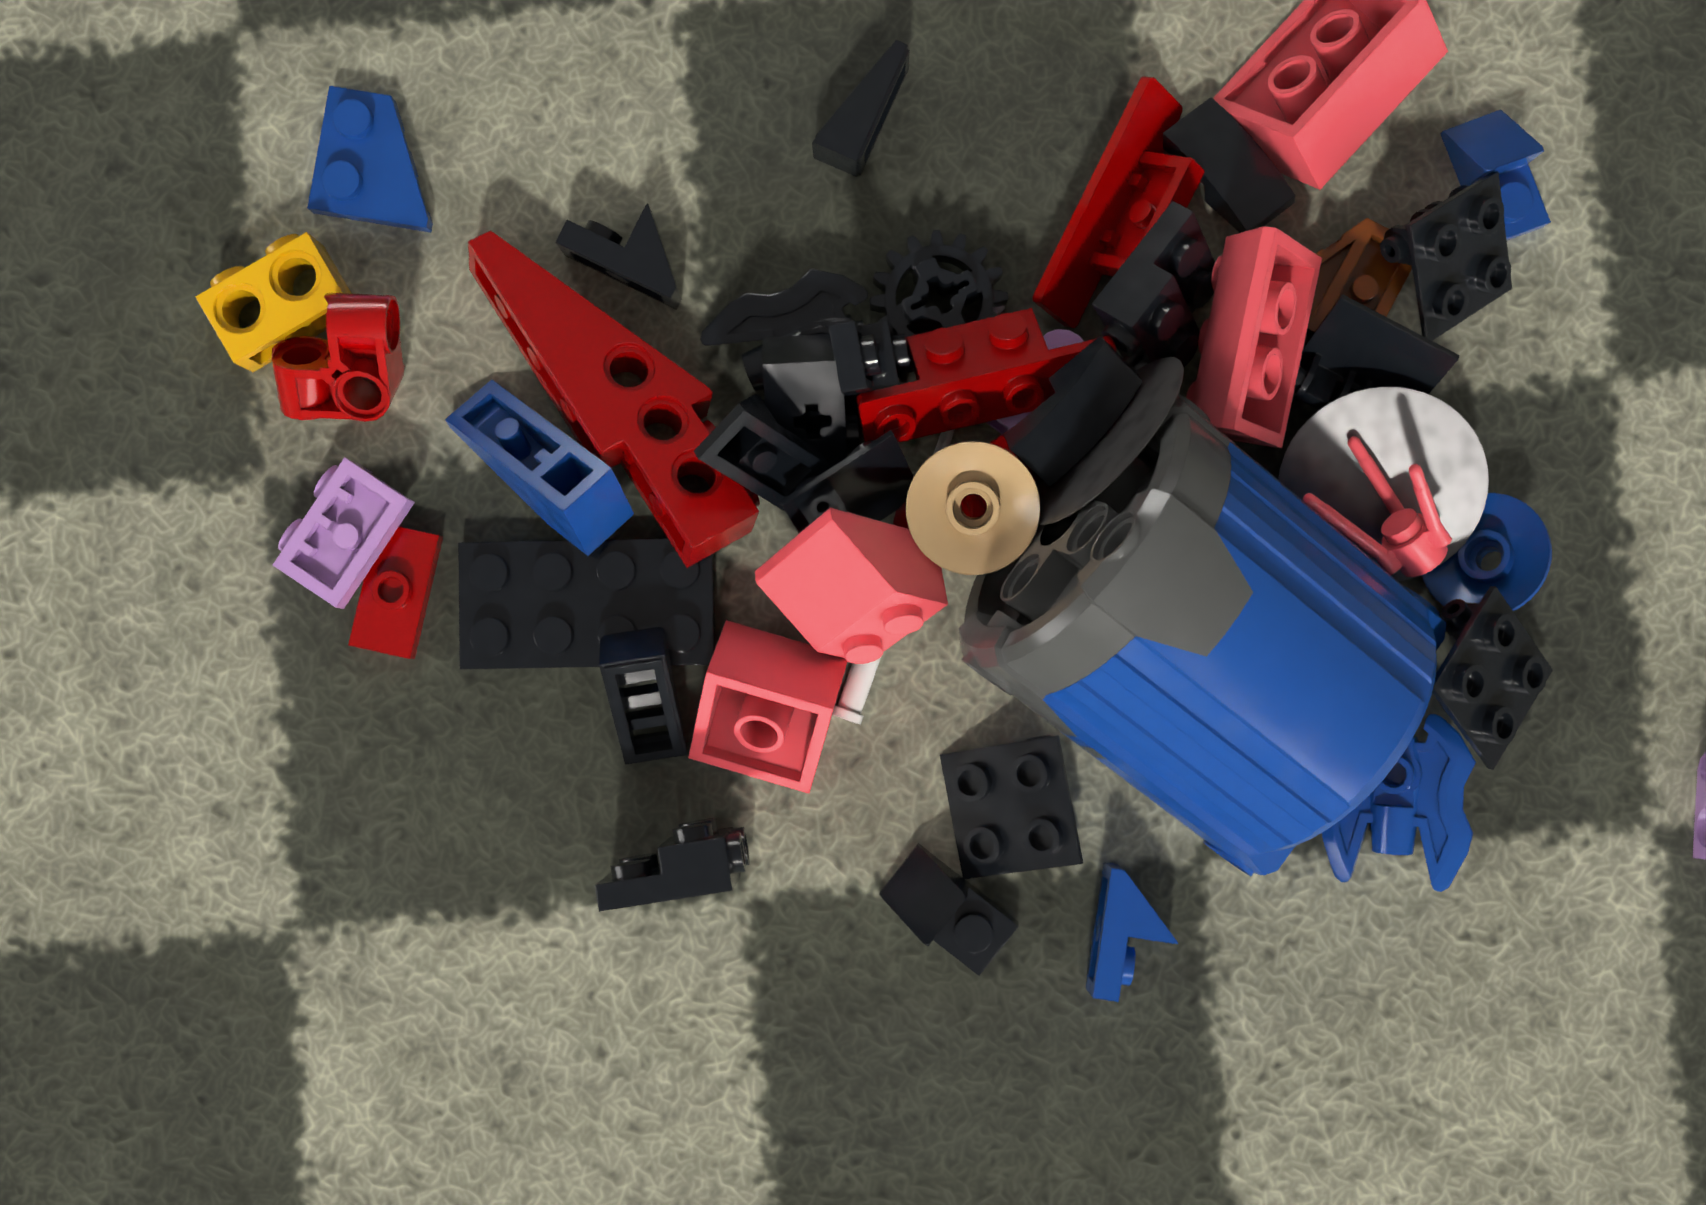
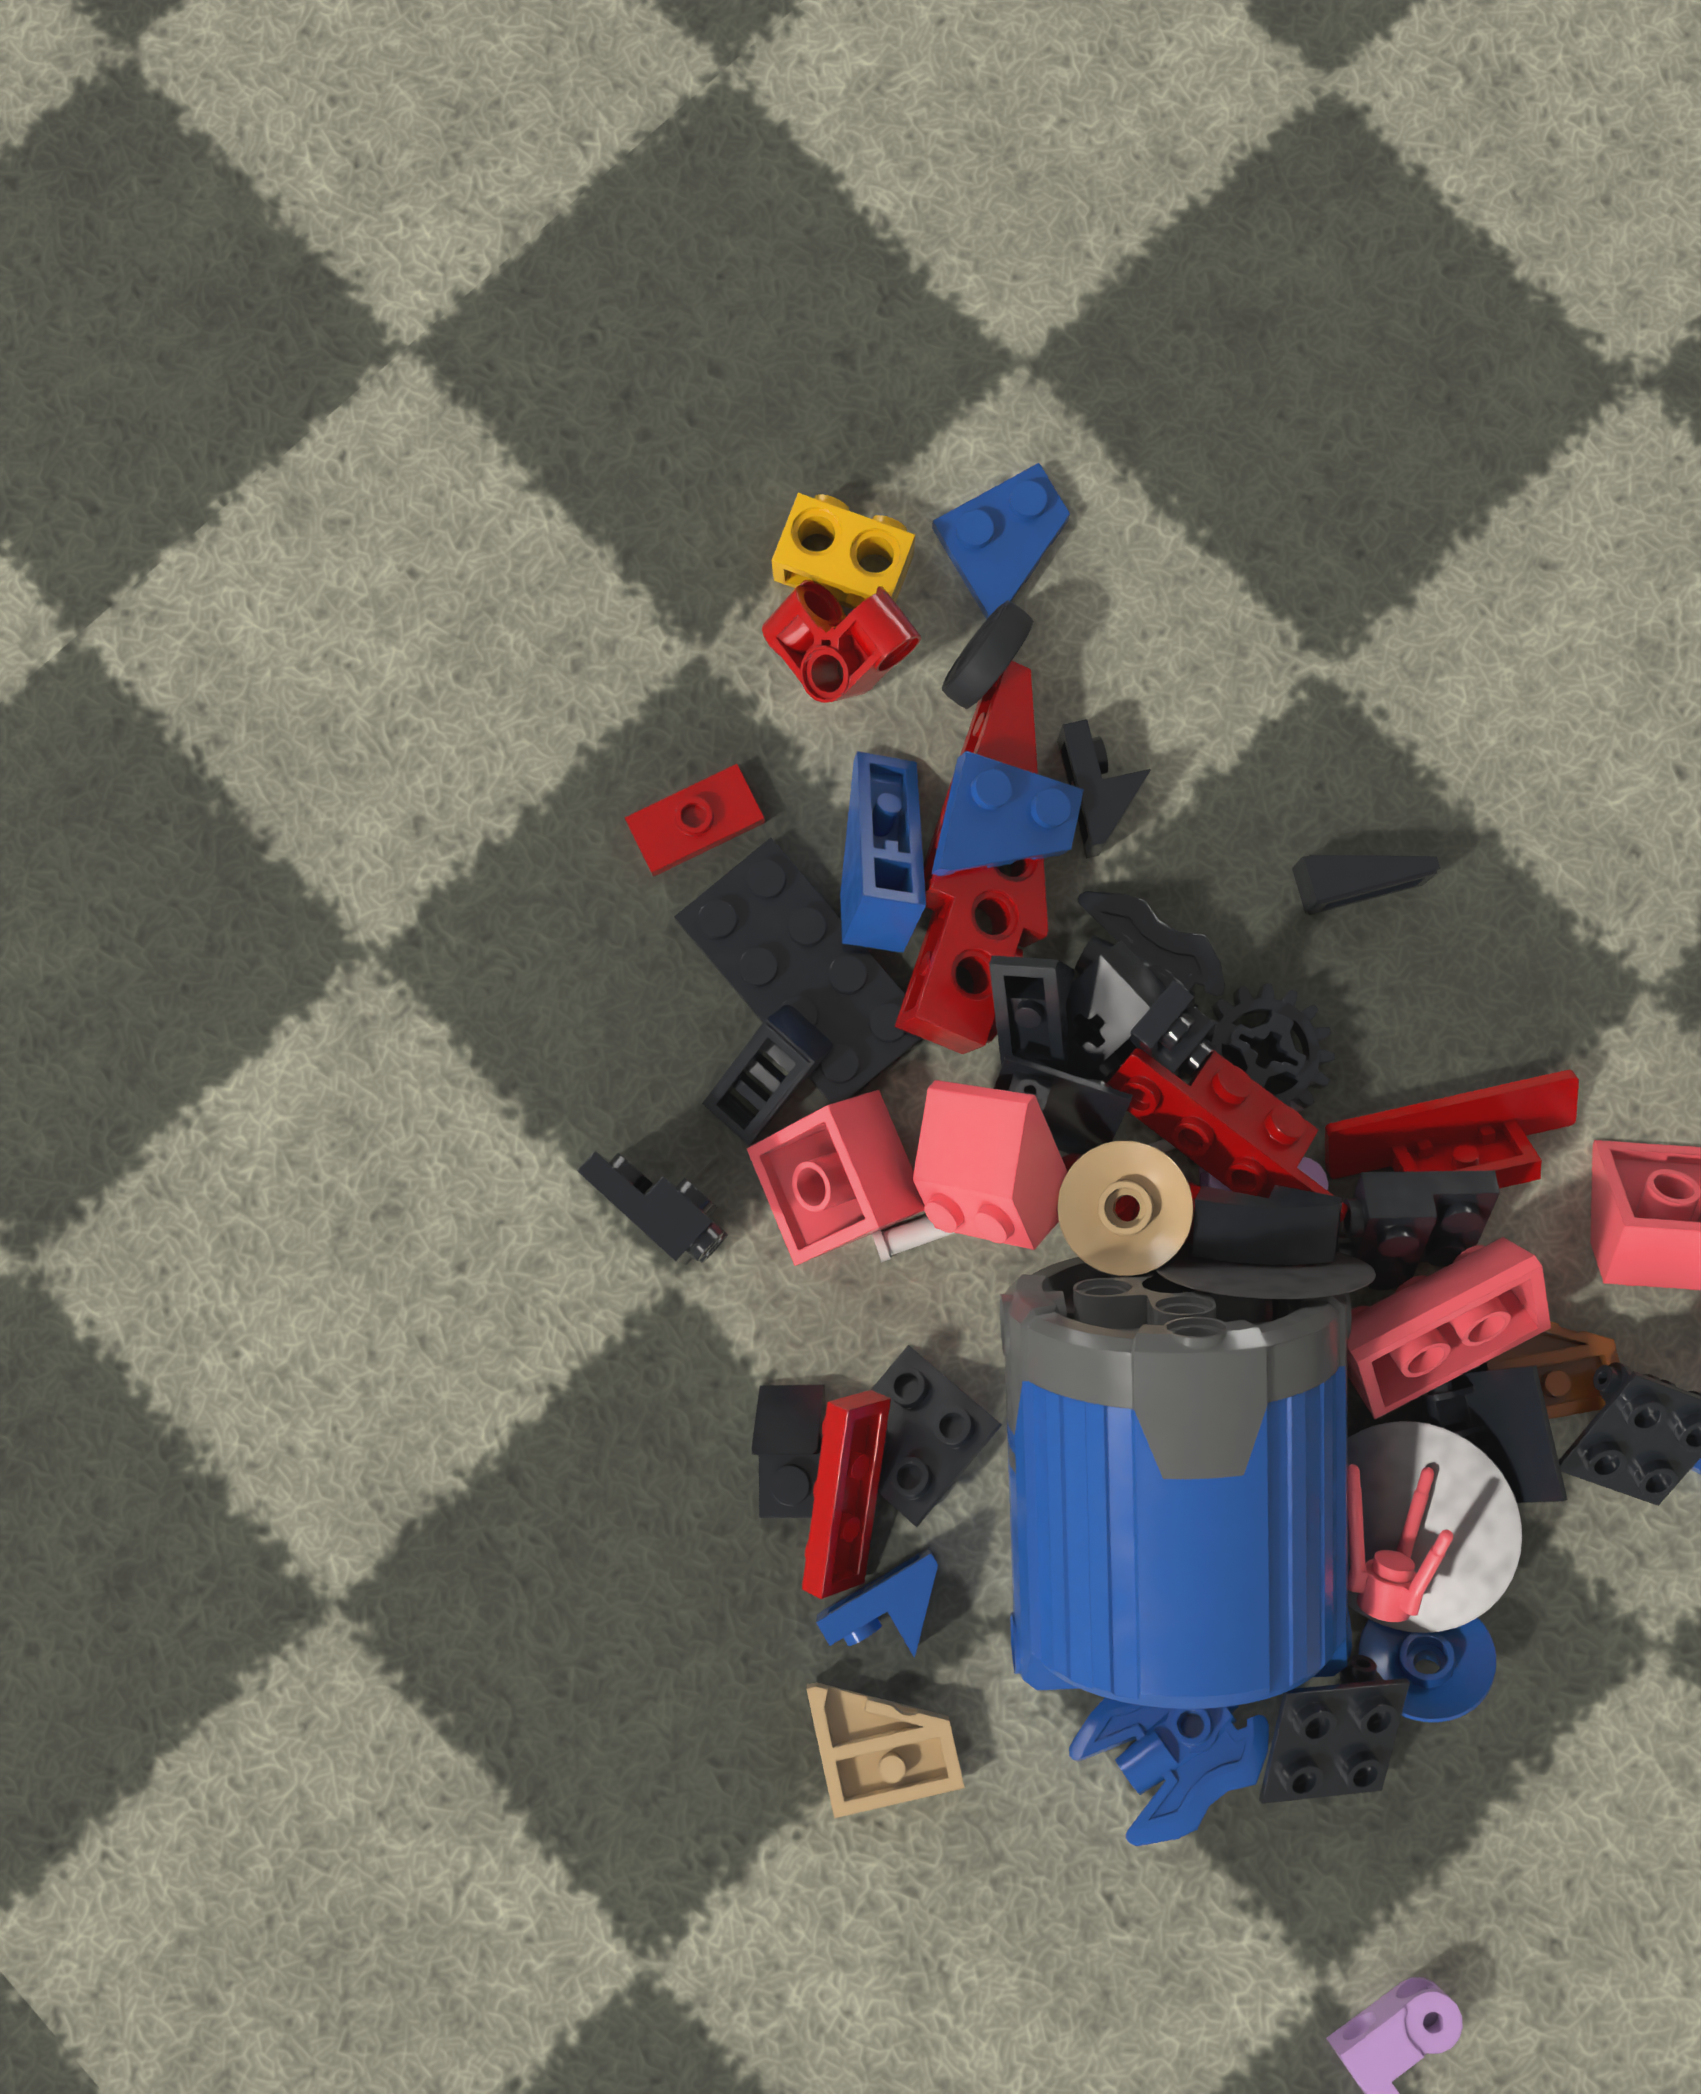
camera: 50 degrees right, 5 degrees down
(341, 532) = (708, 743): lavender bracket -> none
(451, 254) = (987, 654): none -> black tyre
(590, 349) = (1003, 816): none -> blue wing
(1014, 896) = (845, 1493): none -> red plate
(1224, 1022) = (880, 1750): none -> tan wing
(1237, 174) = (1560, 1208): black slope -> none

